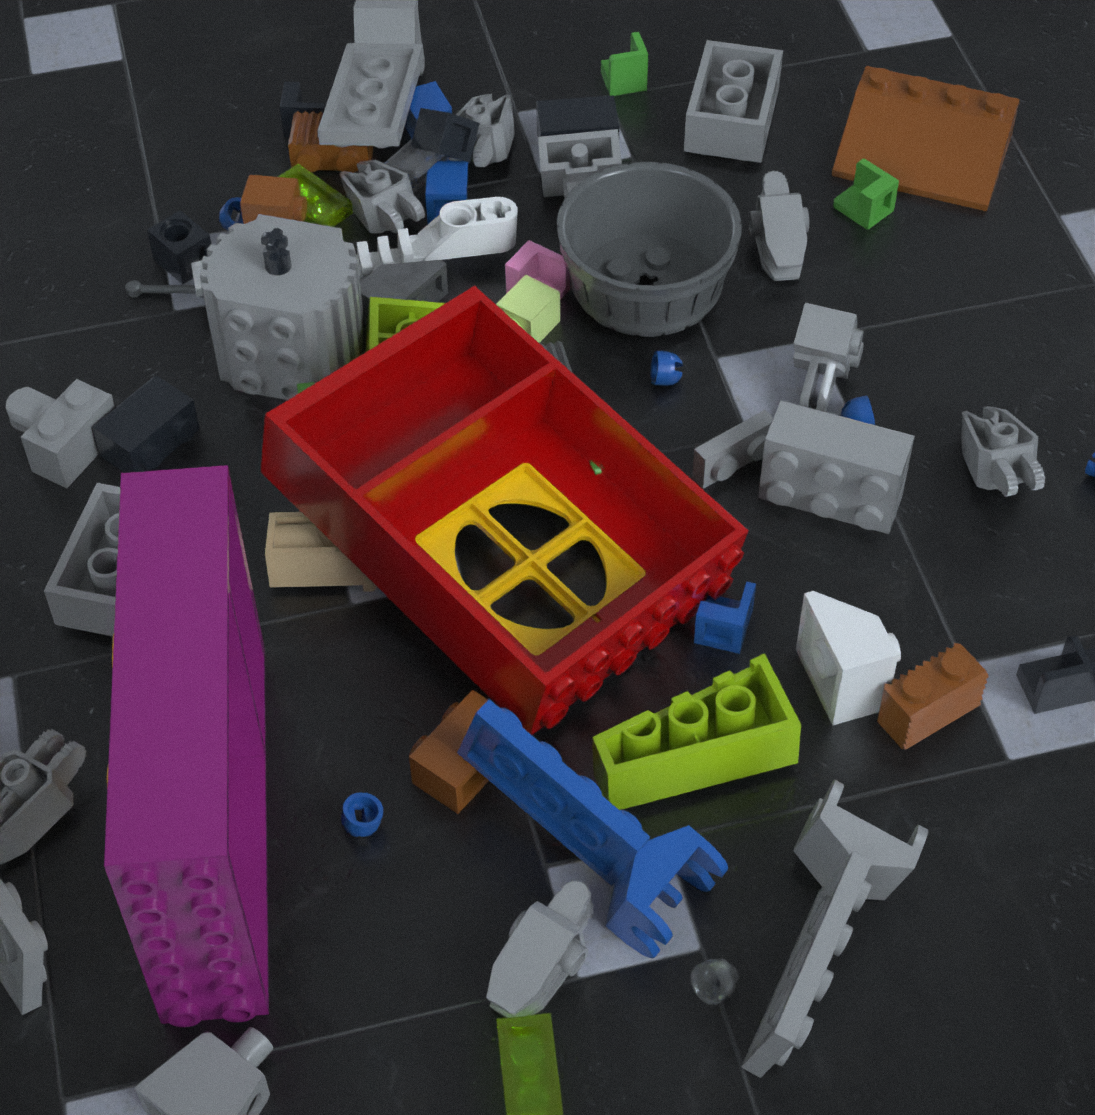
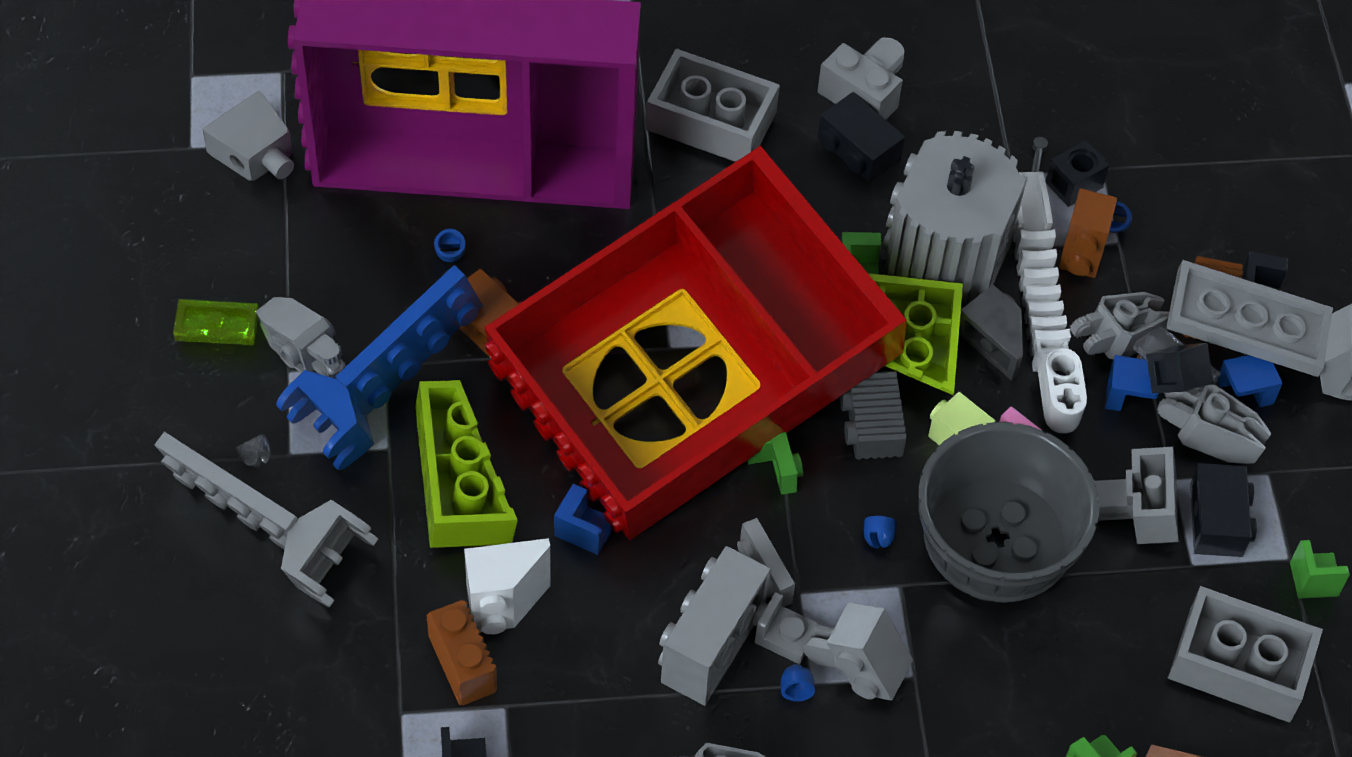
camera: 95 degrees right, 5 degrees up
(324, 203) = (1141, 273): clear neon green plate -> none
(779, 228) = (1050, 661): light grey hinge -> none

